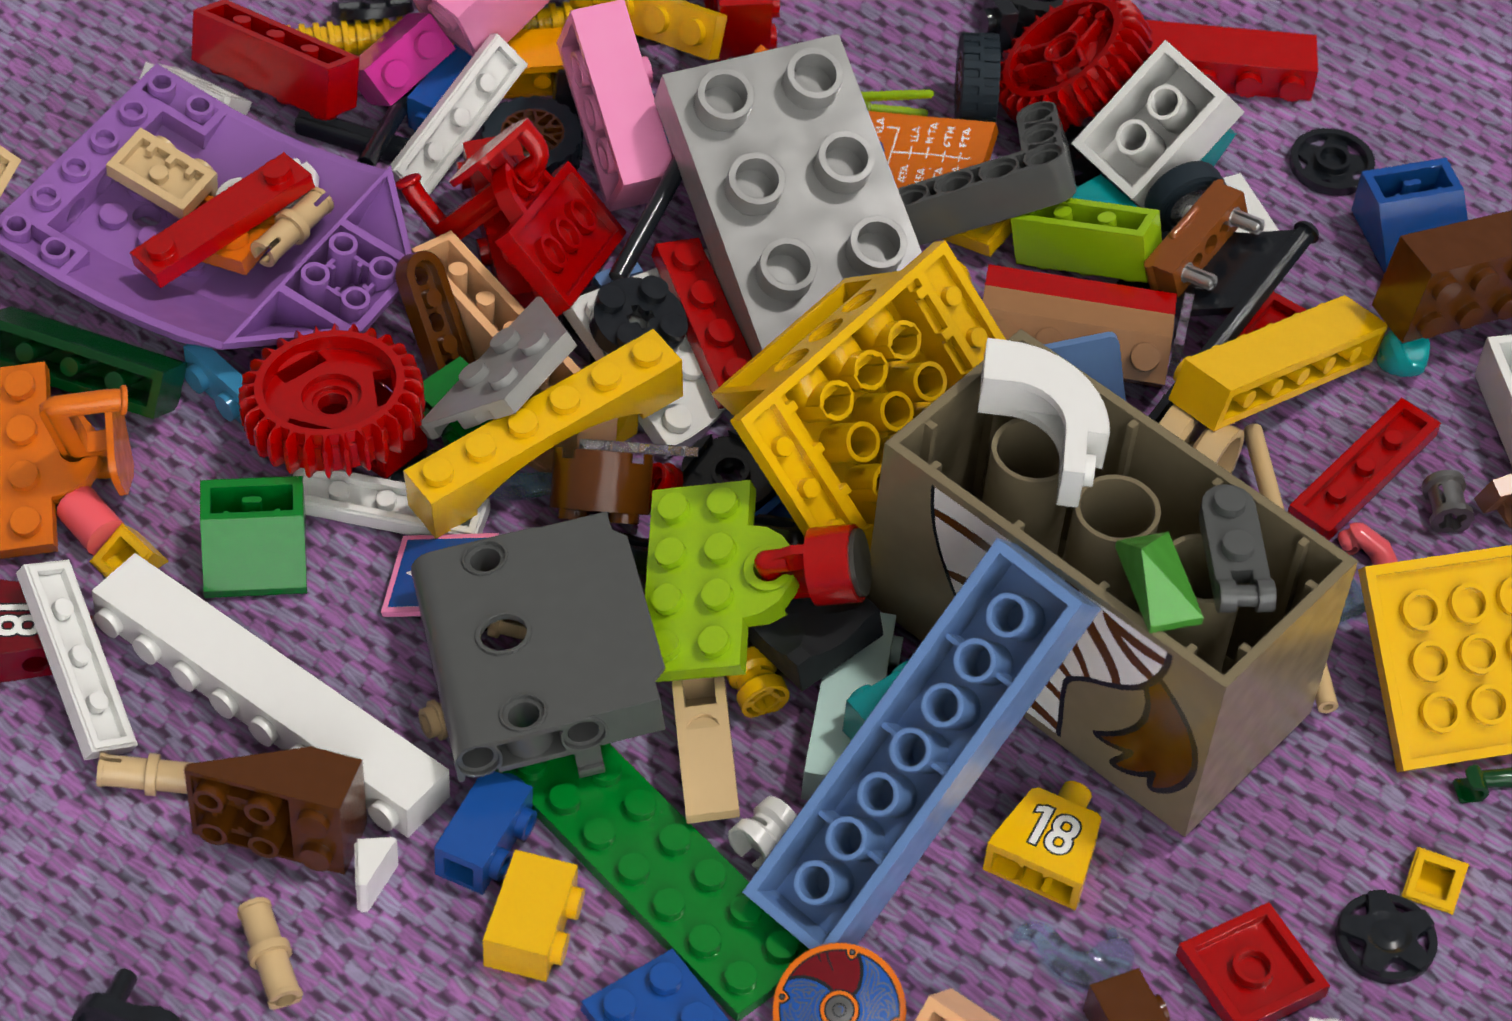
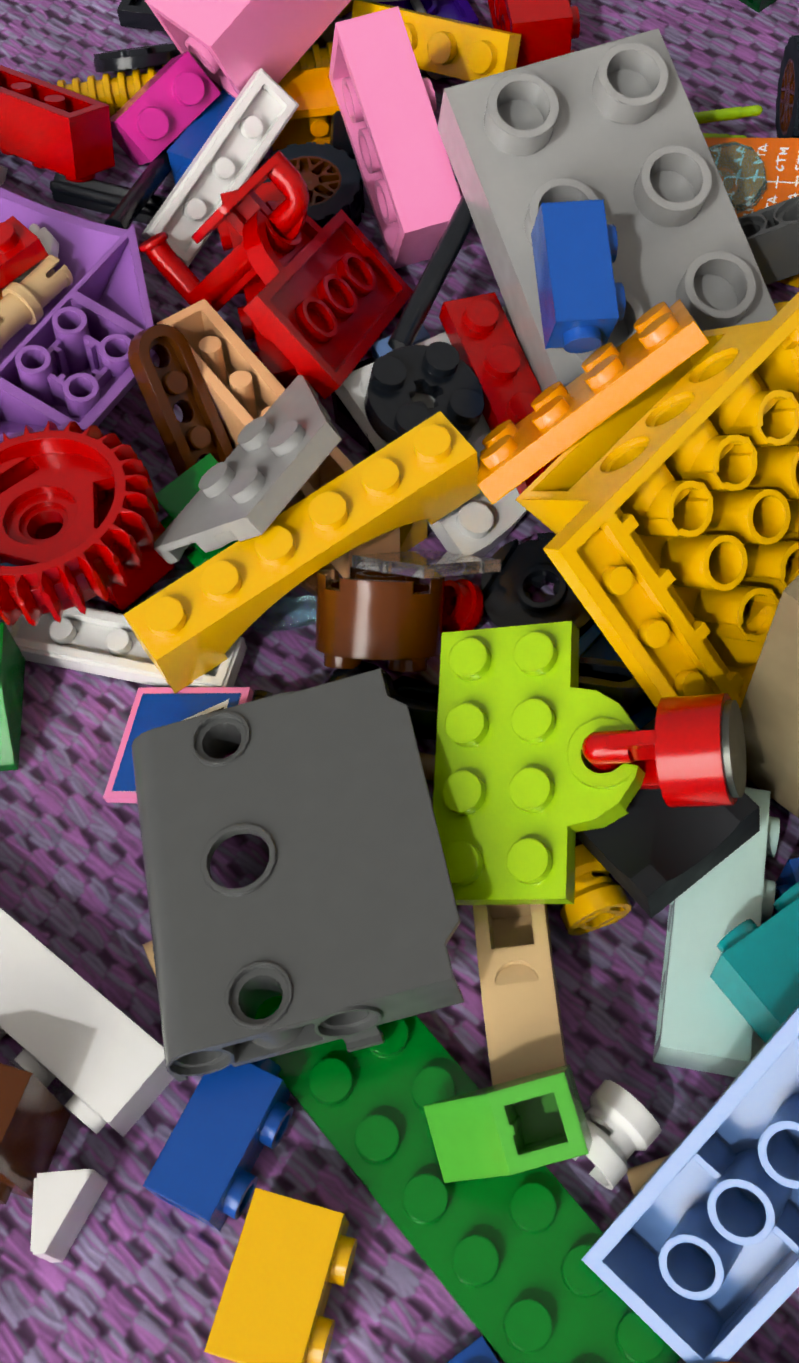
camera: 10 degrees right, 10 degrees up
(694, 807) = (509, 1127): none -> bright green slope
(754, 333) = (568, 413): none -> light orange plate
(762, 230) = (576, 275): none -> blue brick
(914, 147) = (742, 173): none -> clear light blue piece

